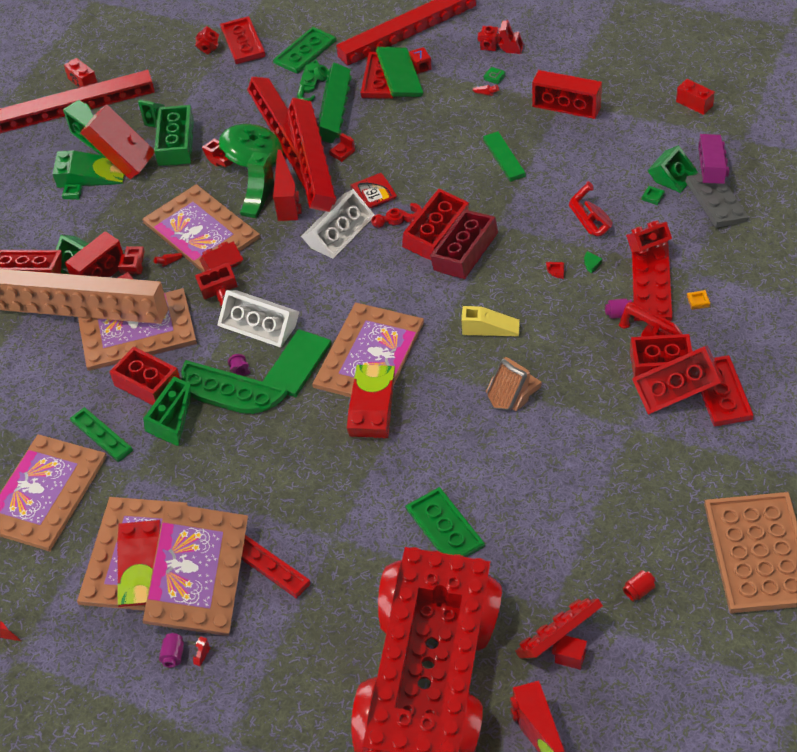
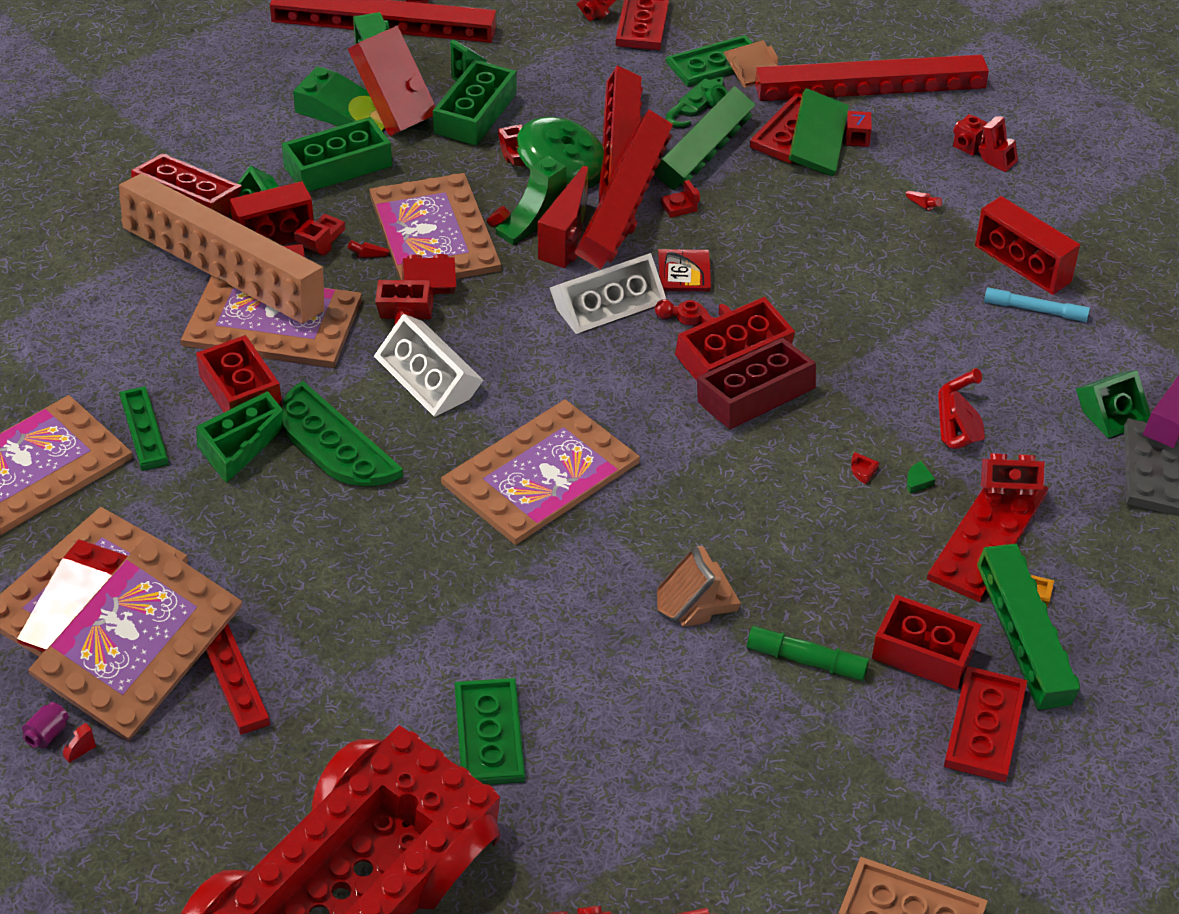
camera: 20 degrees right, 5 degrees down
(72, 191) = (308, 123): green tile -> none
(108, 204) = (337, 154): none -> green brick
(237, 203) = (498, 216): none -> red tile
(238, 364) = (363, 414): magenta brick -> none
(298, 361) = (442, 443): green tile -> none
(326, 42) = (747, 58): none -> nougat piece
(371, 401) = (496, 530): red slope -> none
(487, 322) = (718, 495): light yellow slope -> none
(494, 75) = (948, 185): green tile -> none
(504, 156) = (891, 294): green tile -> none
(574, 131) = (1066, 310): none -> medium azure piece
(597, 394) = (808, 653): none -> green piece
(616, 307) = (913, 553): magenta brick -> none
(653, 195) = (1065, 426): green tile -> none
(656, 324) = (950, 596): red piece -> none
(678, 379) = (927, 678): red slope -> none
(710, 323) = (1028, 627): none -> green brick

